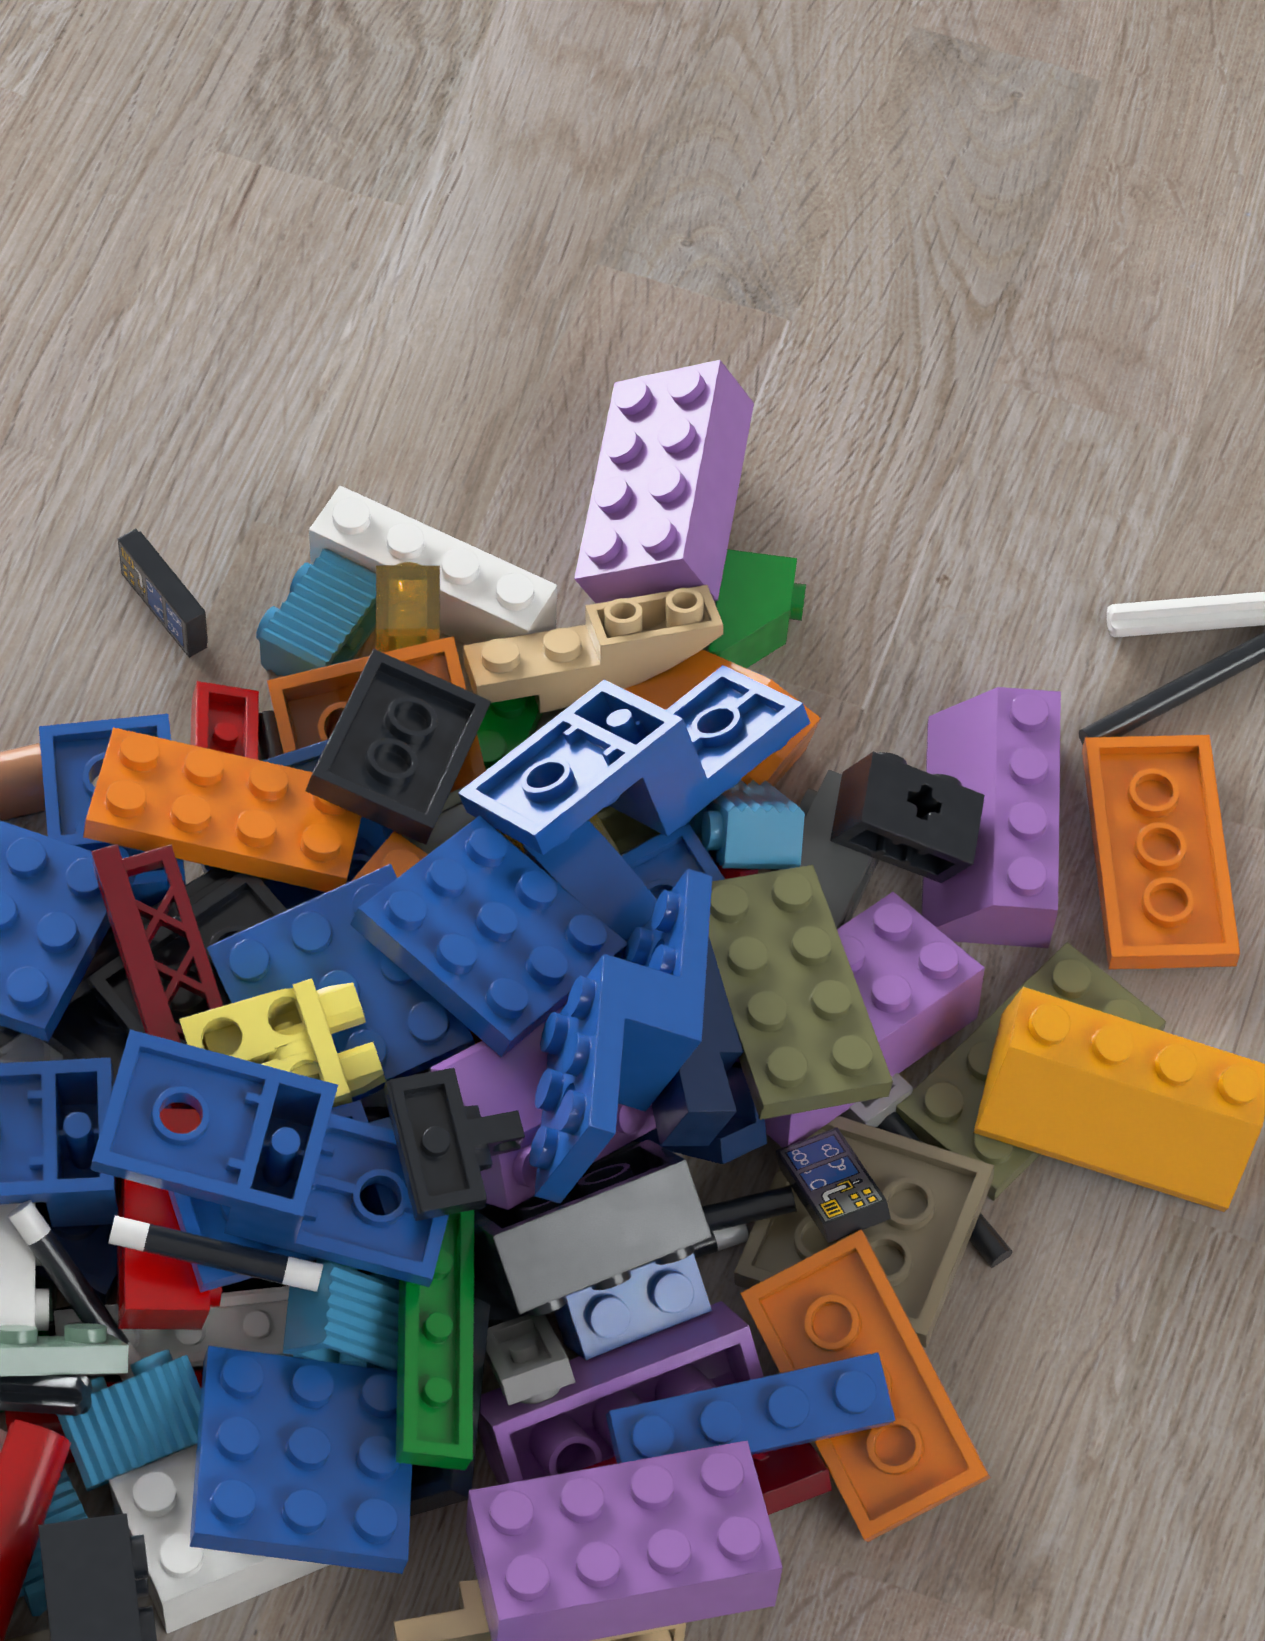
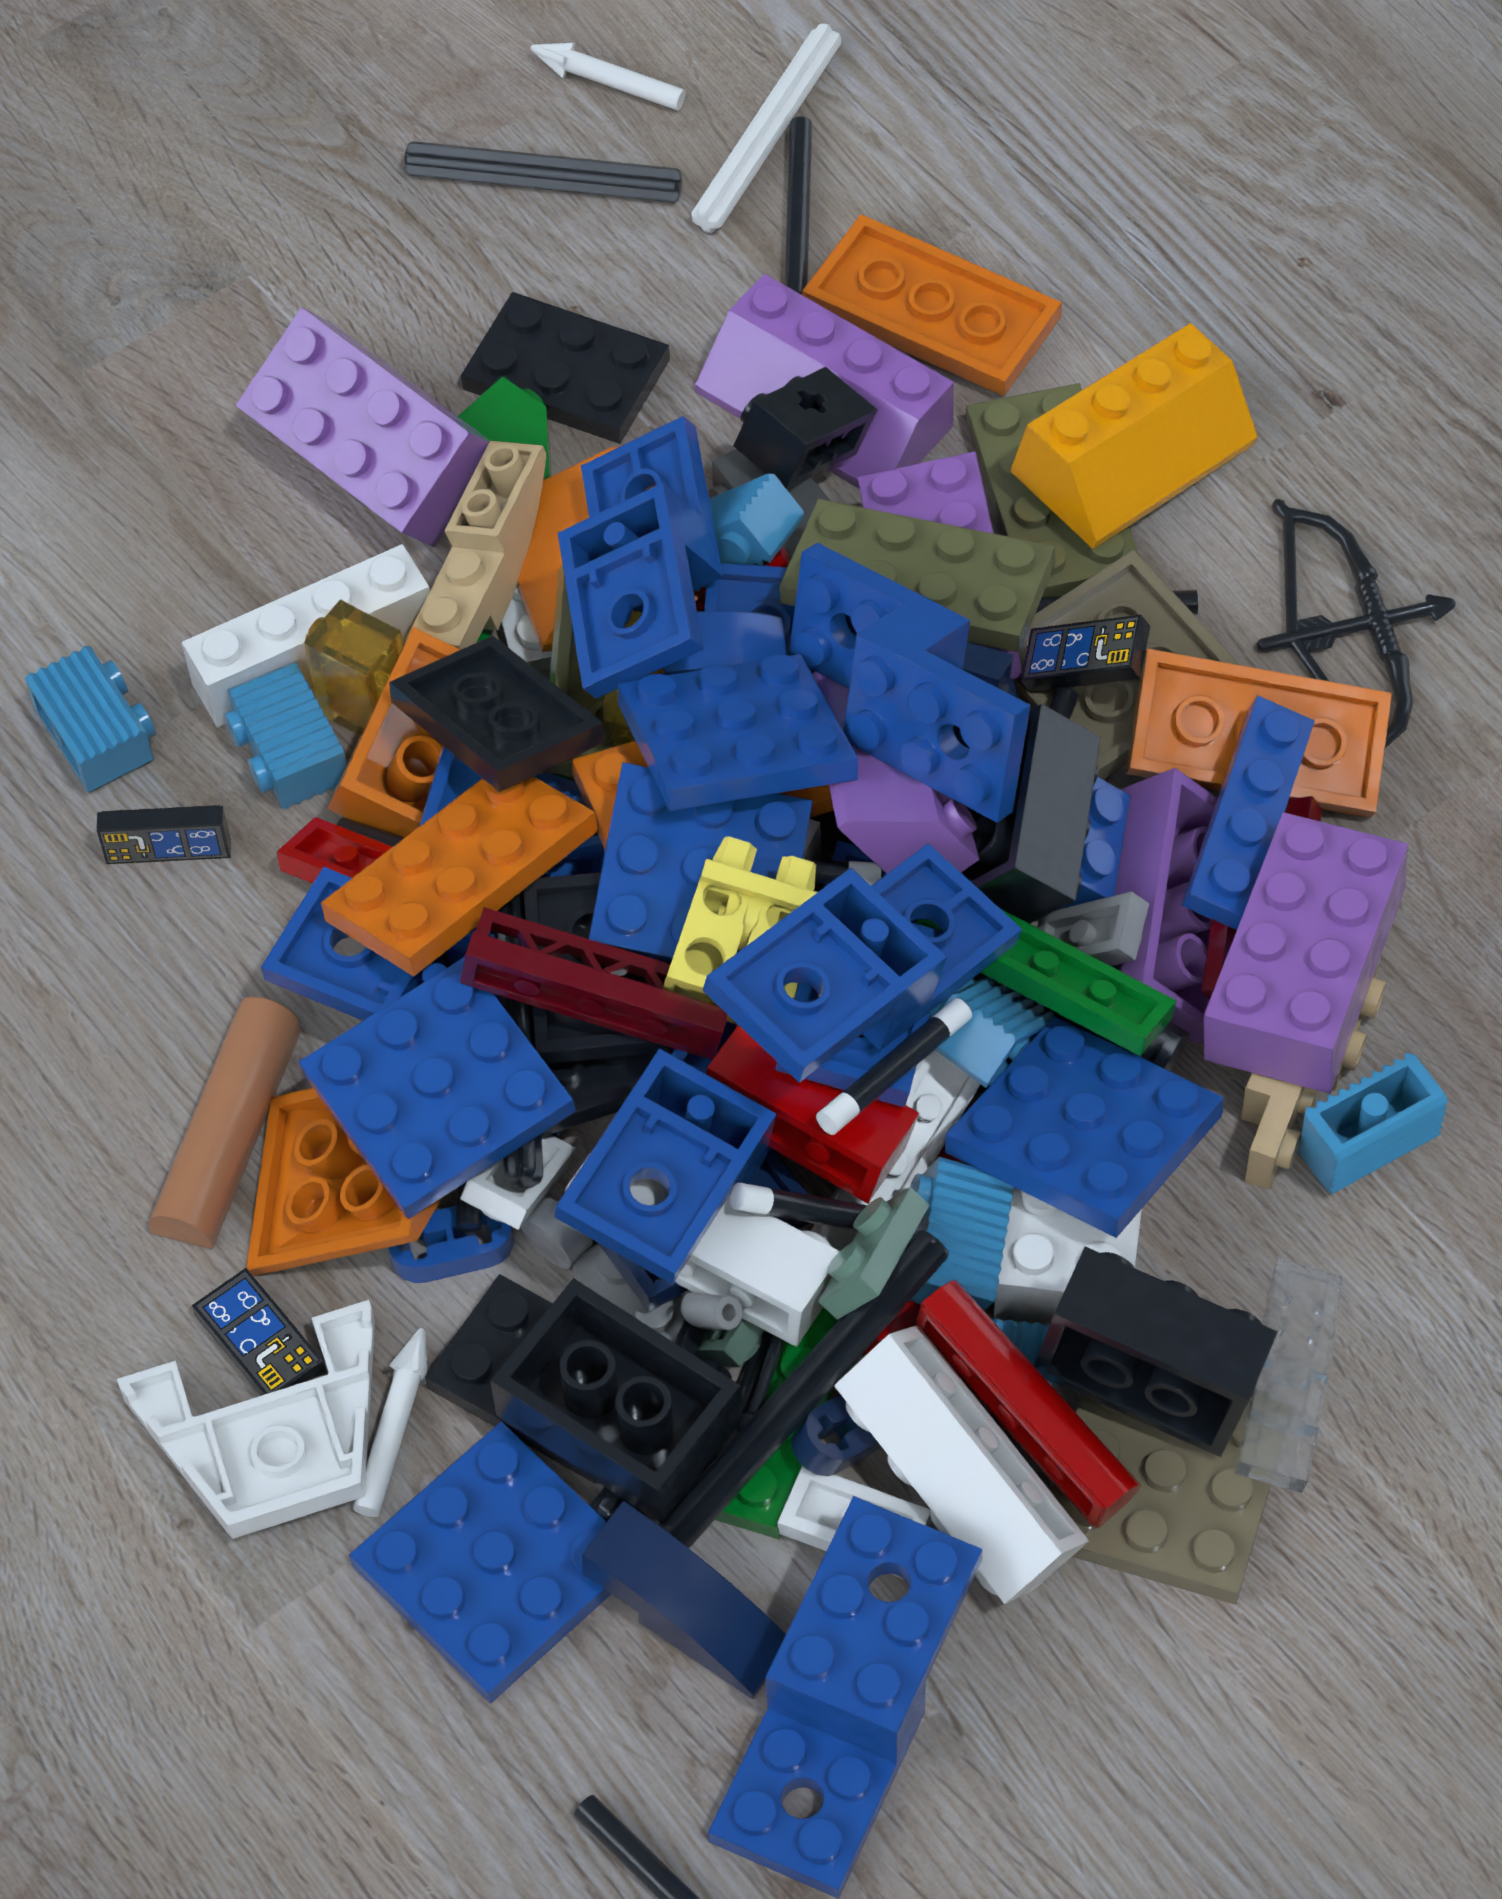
camera: 50 degrees left, 0 degrees up
(240, 472) = (90, 717): none -> dark azure brick
(445, 1142) = (923, 845): black hinge -> none
(870, 608) = (578, 366): none -> black plate
(1043, 1383) = (1320, 633): none -> black piece
(1067, 469) = (543, 171): none -> black axle
(1204, 416) = (564, 59): none -> white piece

